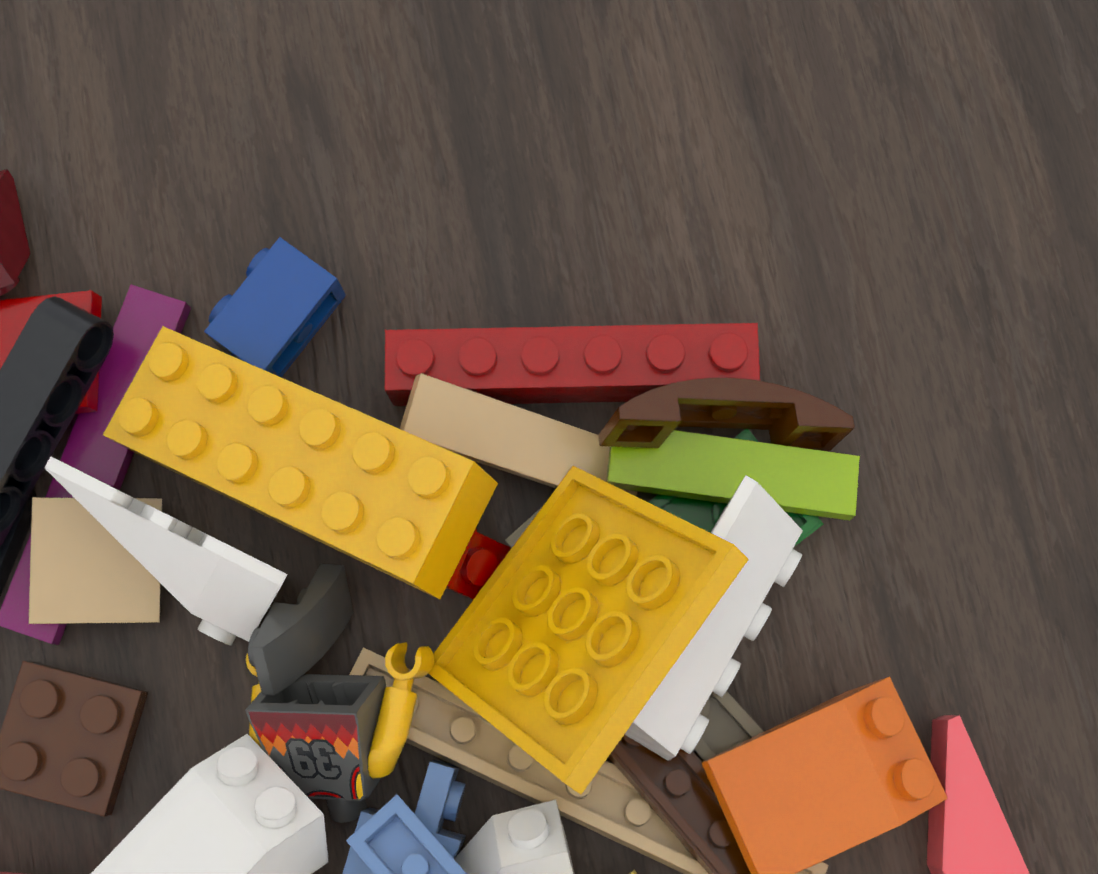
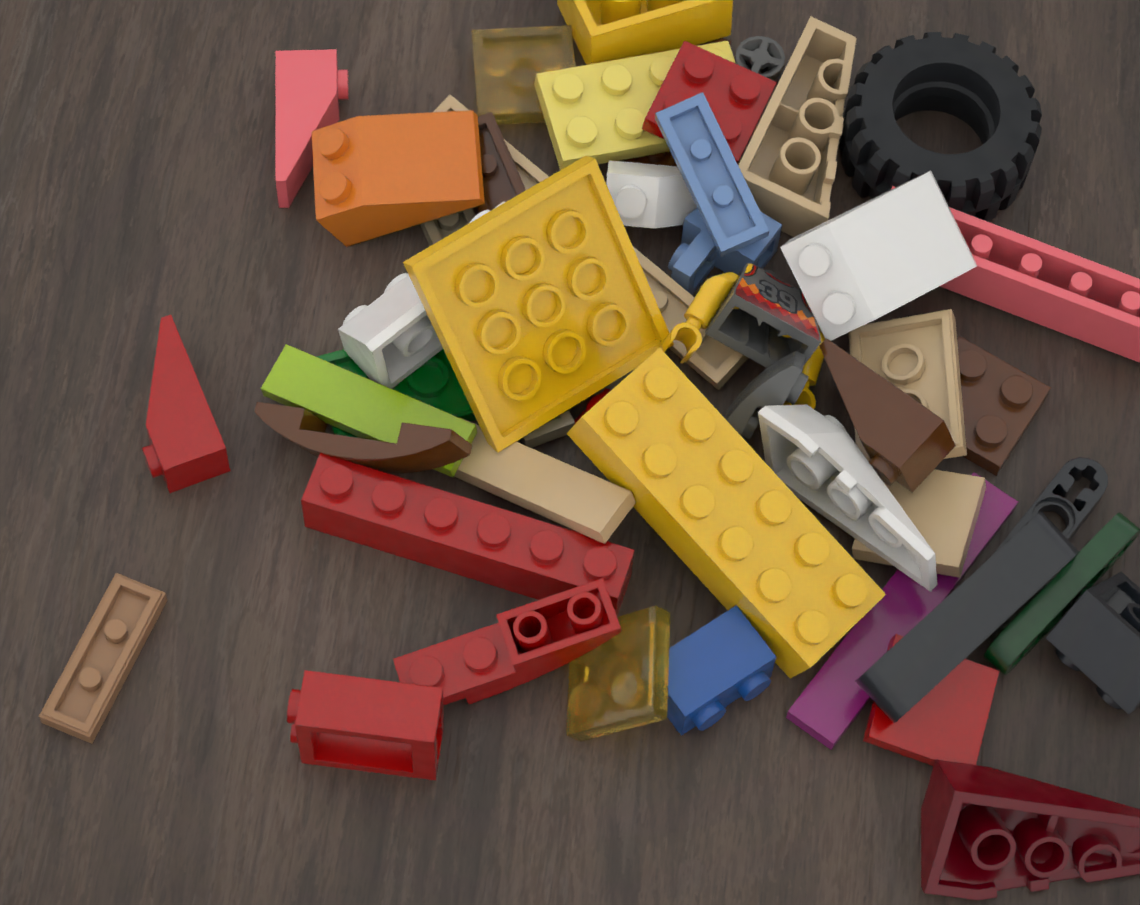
camera: 170 degrees left, 15 degrees down
(139, 708) = (920, 360): none -> tan tile
(148, 638) = (896, 430): none -> reddish brown slope
(361, 264) = (622, 679): none -> clear yellow plate
(482, 254) = (517, 648): none -> red slope
(593, 117) = (367, 724): none -> red window
(885, 132) = (103, 658): none -> medium nougat tile
(930, 396) = (179, 422): none -> red slope

